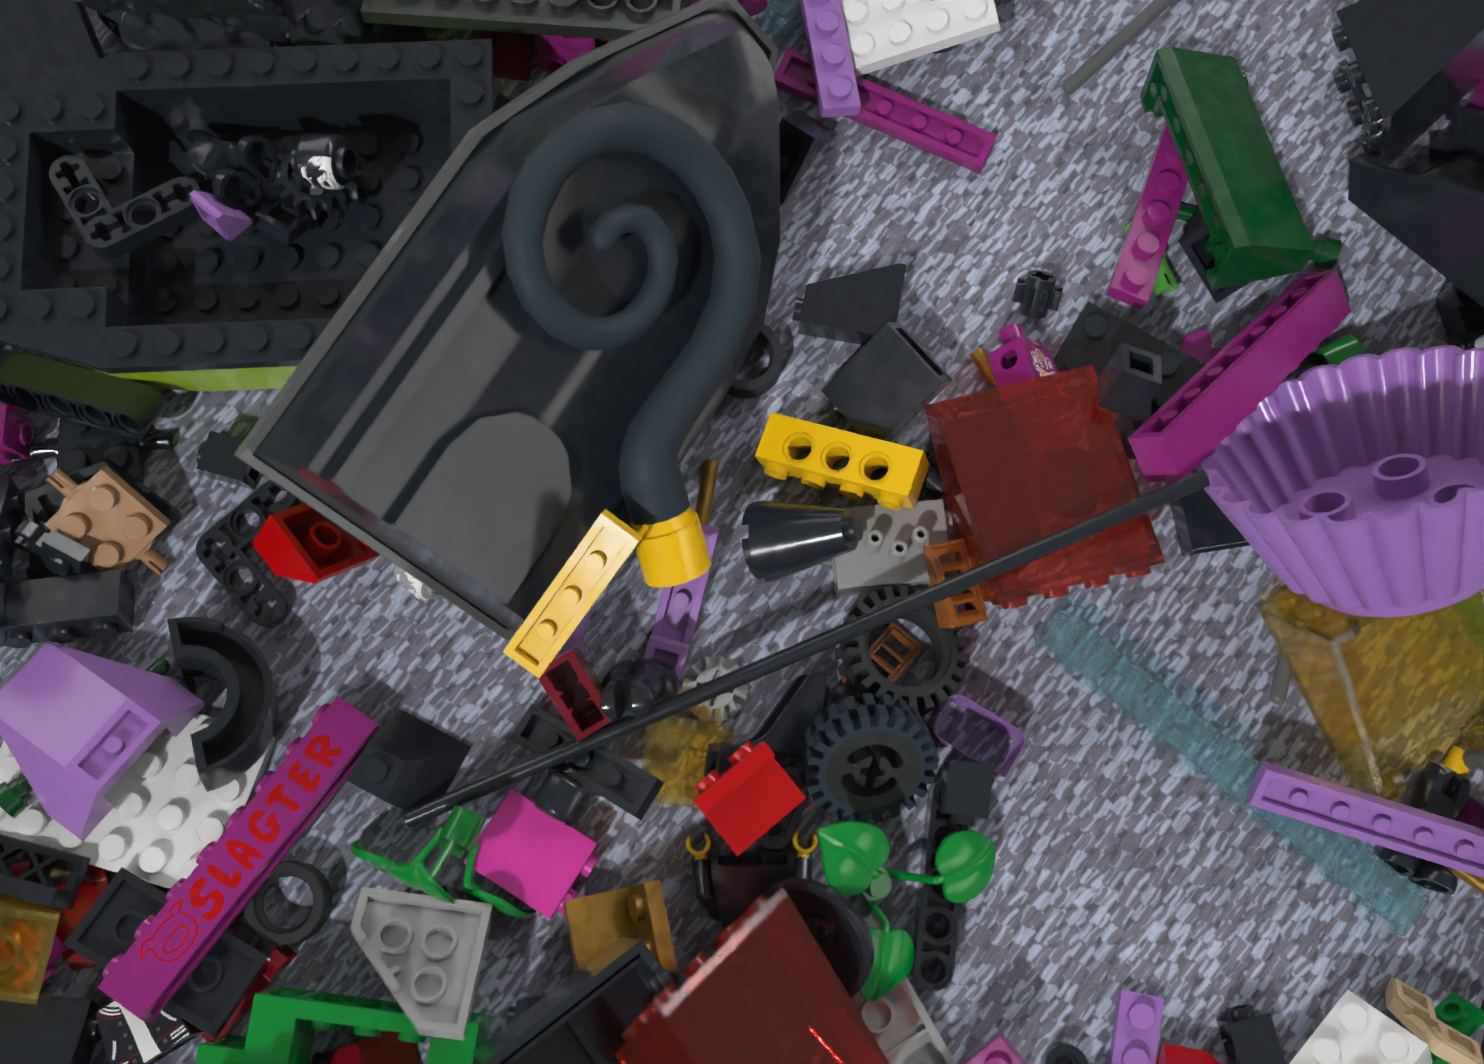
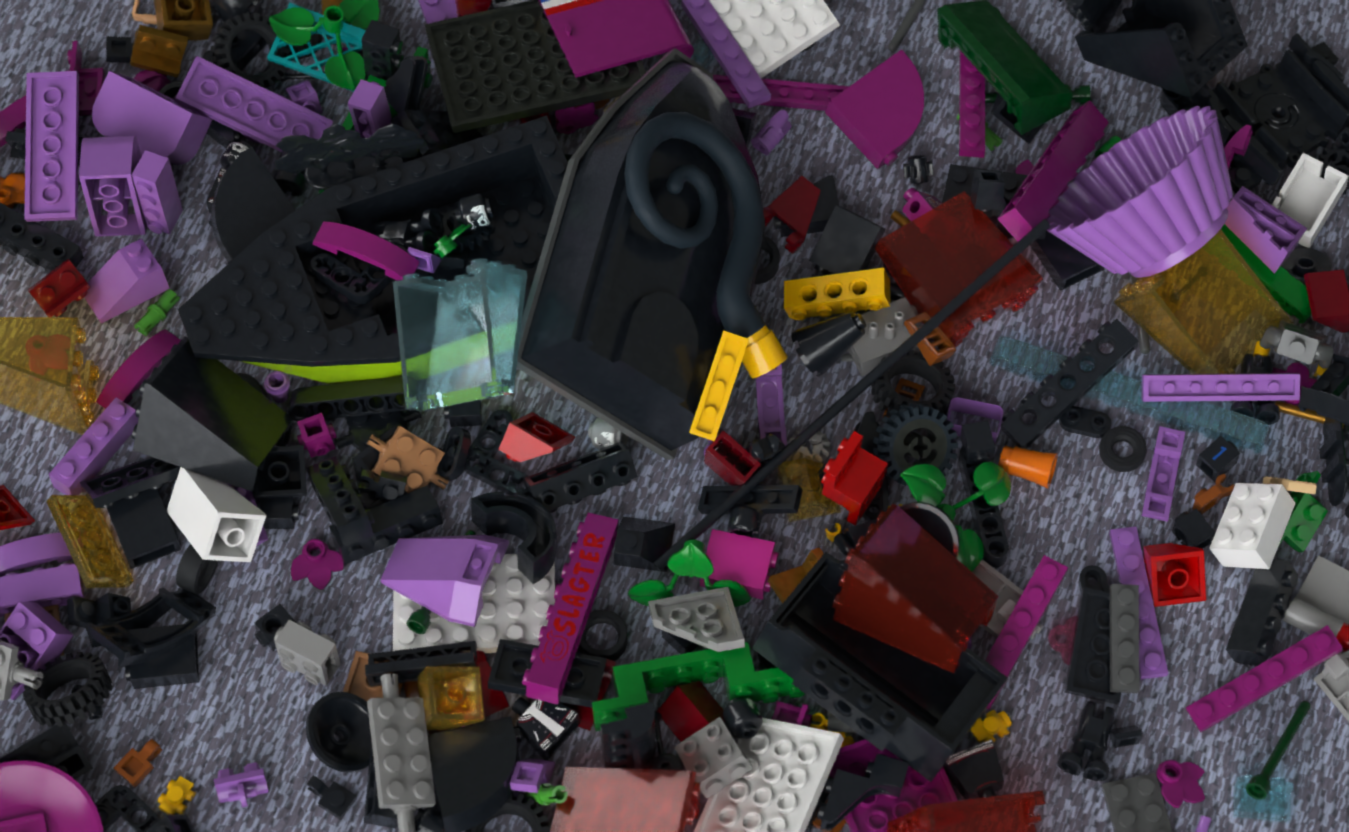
camera: 15 degrees left, 15 degrees down
(129, 177) = (367, 247): none -> magenta slope
(173, 377) = (459, 334): none -> clear light blue windscreen
(186, 528) = (456, 450): none -> black plate
(254, 205) = (446, 245): none -> green plate
(351, 632) = (582, 477): none -> black brick
(828, 303) = (795, 209): none -> dark red flag
(844, 165) = (772, 132): none -> medium lavender hinge
(1016, 181) = (881, 109): none -> magenta brick
(1034, 839) = (1029, 464): none -> orange plant
(1146, 789) = (1085, 421): none -> black plate
(1213, 851) = (1126, 434): none -> black tyre
(1231, 927) = (1163, 474): none -> medium lavender slope
(1250, 707) = (1025, 434): none -> black brick
(1291, 992) = (1208, 498): none -> dark orange plate
(1332, 928) = (1218, 458): none -> black brick

